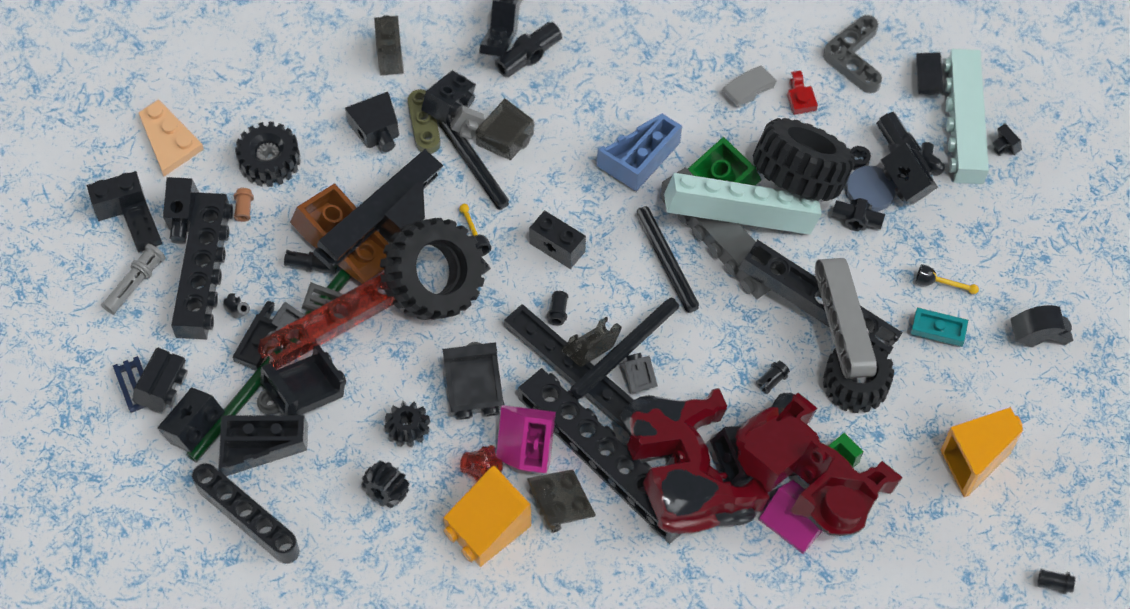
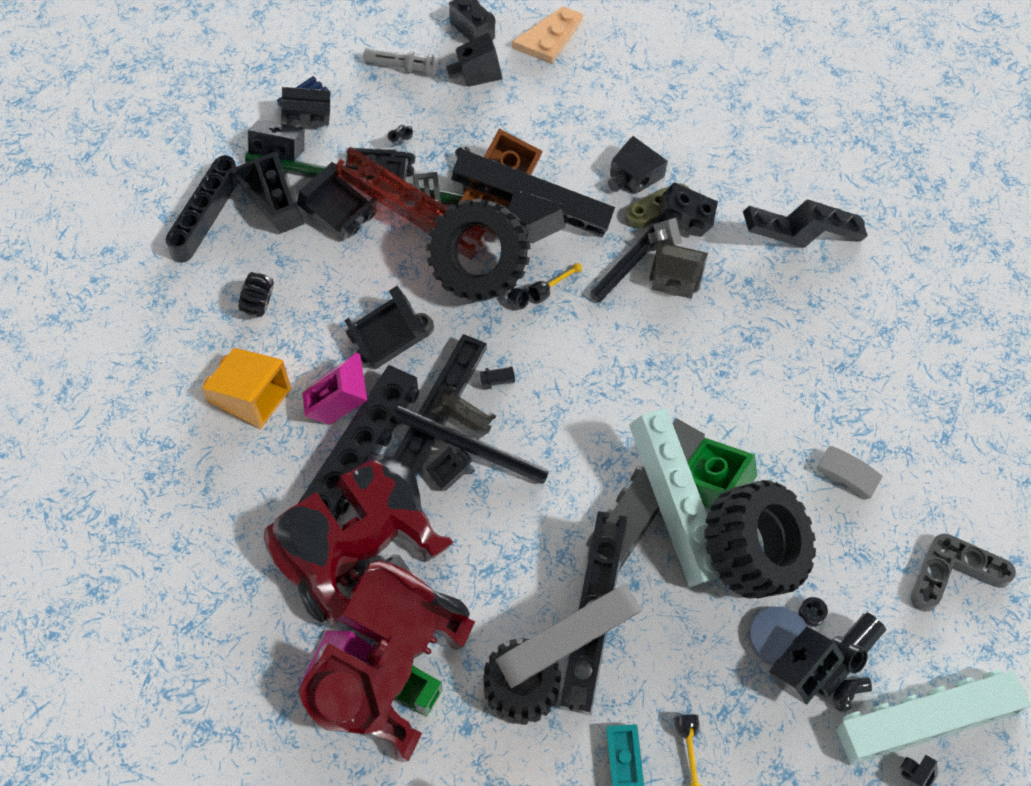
camera: 70 degrees right, 0 degrees up
(141, 225) = (445, 52): black plate -> none
(198, 323) = (430, 97): black brick -> none
(243, 204) = (504, 105): nougat pin -> none
(261, 142) = (566, 91): black bush -> none
(388, 45) = (723, 146): clear smoke torso -> none
(405, 415) = (326, 294): black gear -> none
(480, 461) = (303, 364): clear red rock -> none
(528, 49) = (783, 259): black piece -> none
(557, 239) = (570, 350): black brick -> none
(560, 498) = (290, 441): clear smoke hinge -> none
(639, 154) = (708, 392): medium blue wedge -> none
(667, 259) = (589, 461): black axle -> none
(774, 375) = (500, 599): black pin -> none
(801, 98) = (864, 530): red plate -> none
(858, 214) = (734, 629): black axle -> none
(929, 73) = (969, 657): black slope -> none

